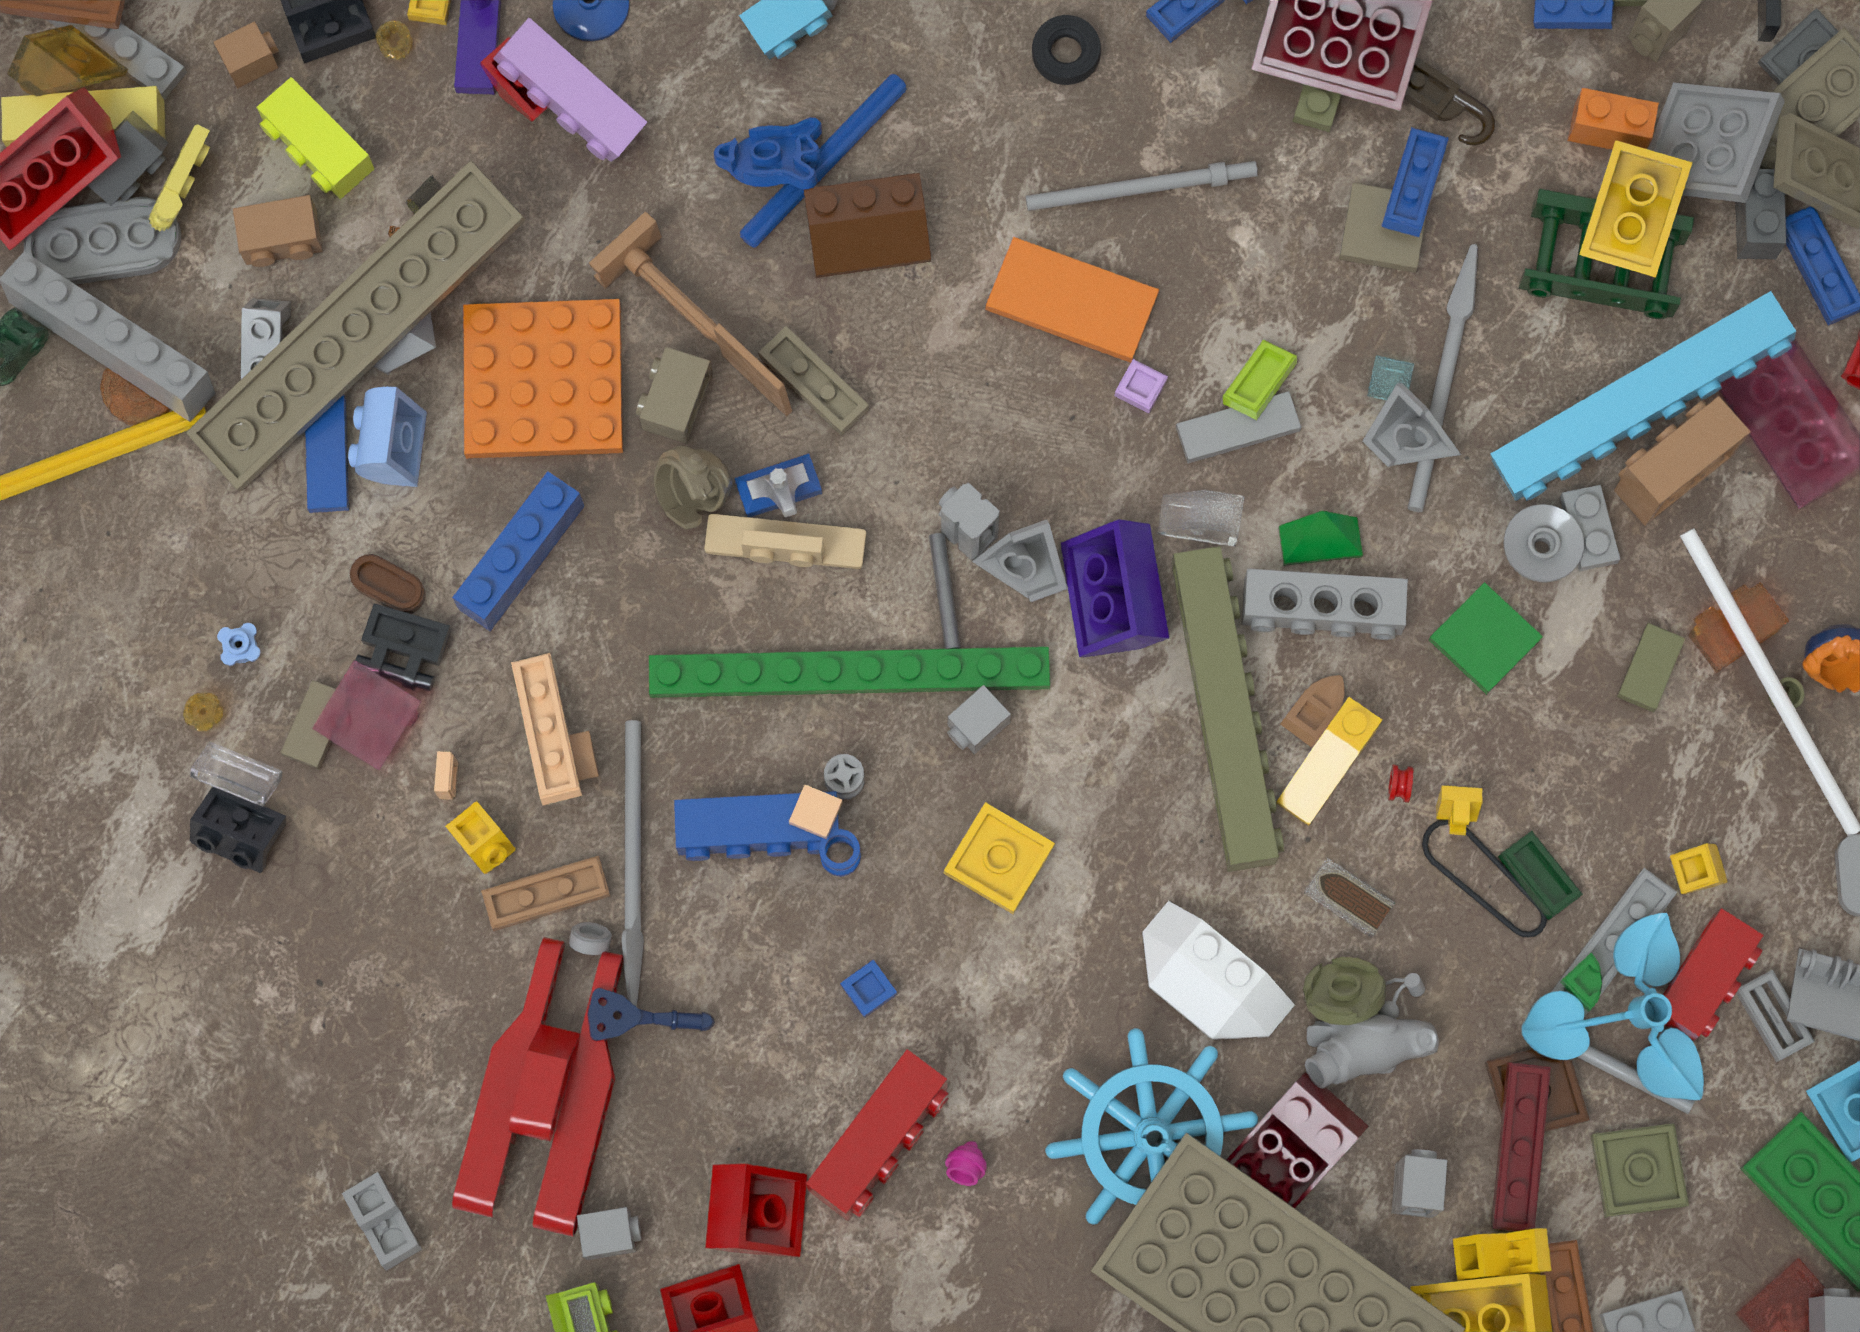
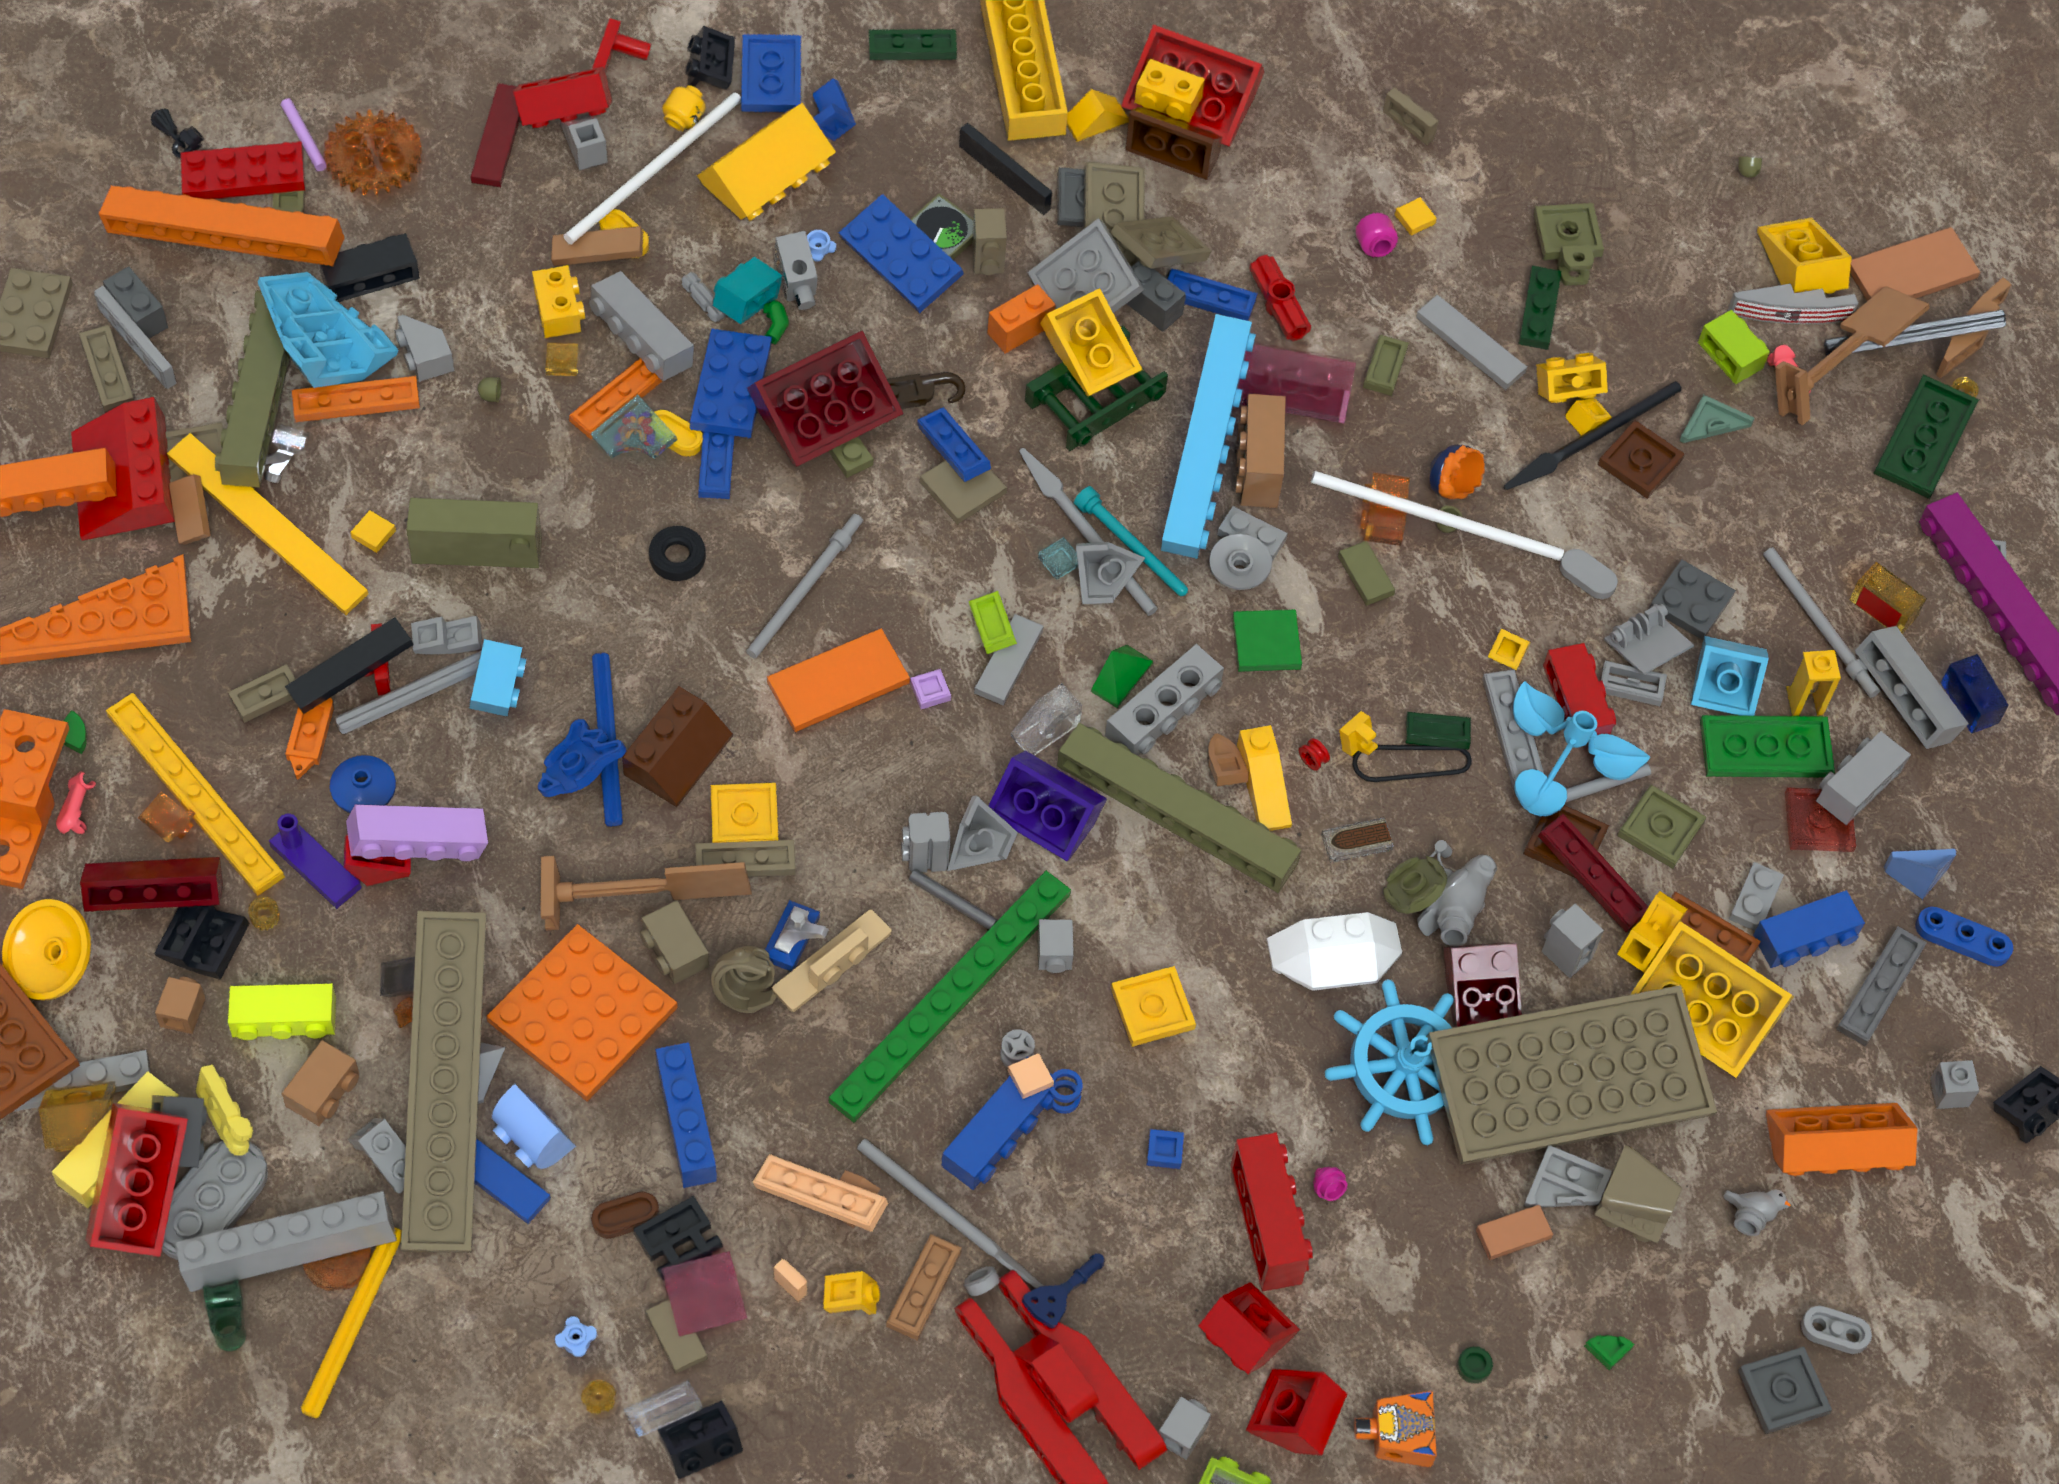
camera: 55 degrees left, 15 degrees down
(857, 340) = (744, 812): none -> yellow plate
(1475, 354) = (1089, 501): none -> teal piece
(1585, 982) = (1525, 757): green tile -> none

